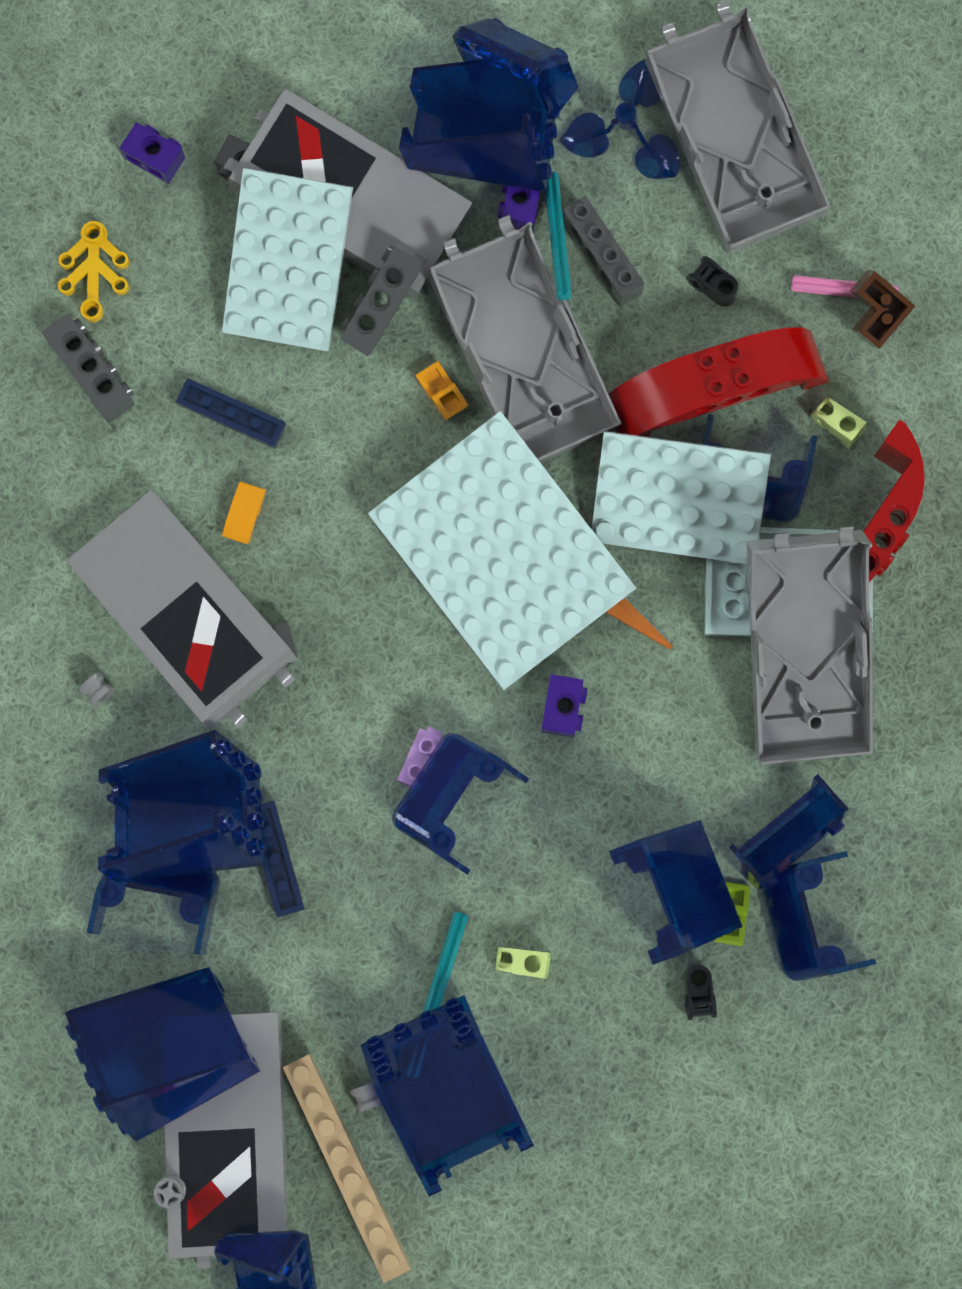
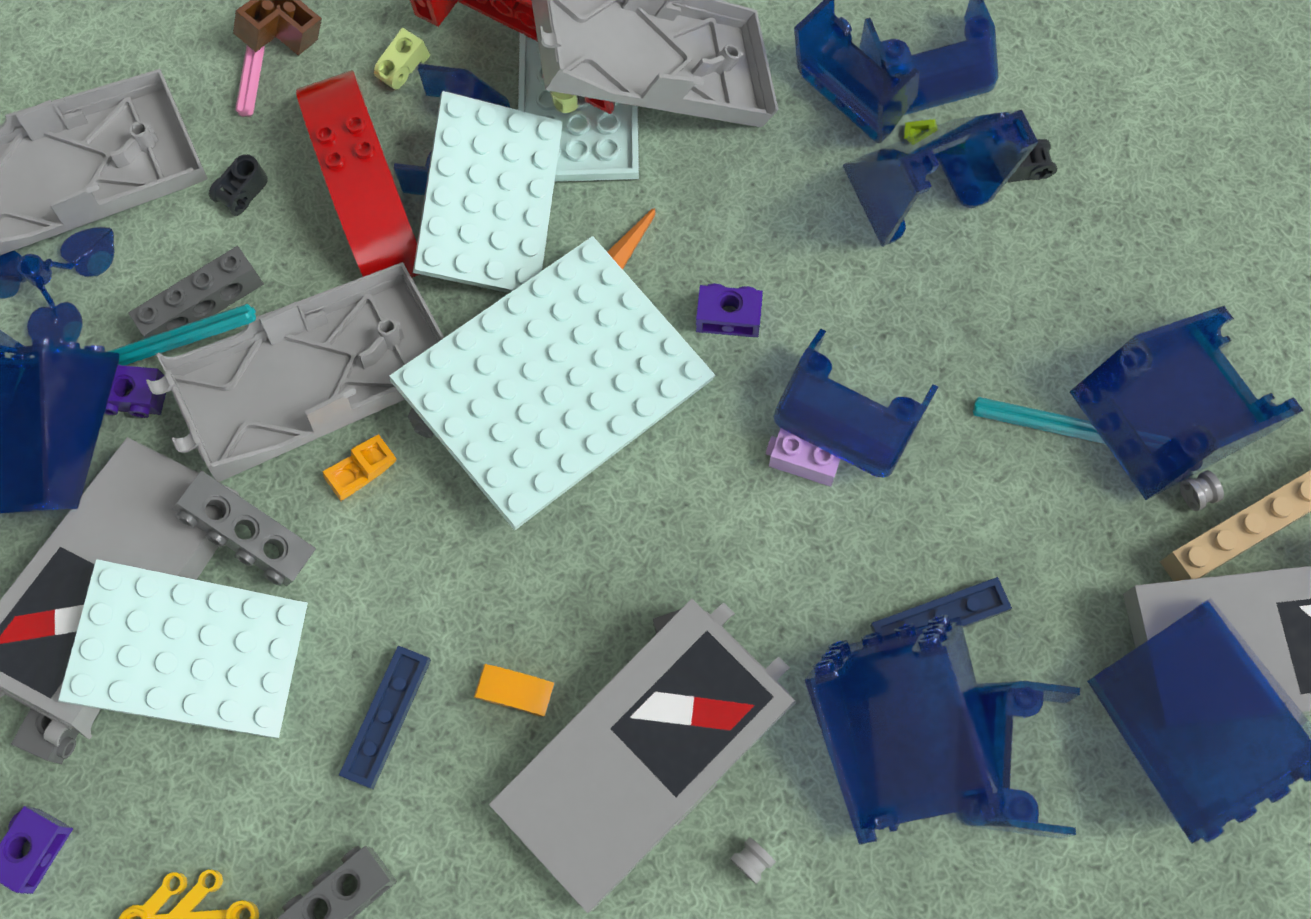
camera: 90 degrees left, 10 degrees down
(523, 962) = (1022, 333): yellowish green leg -> none

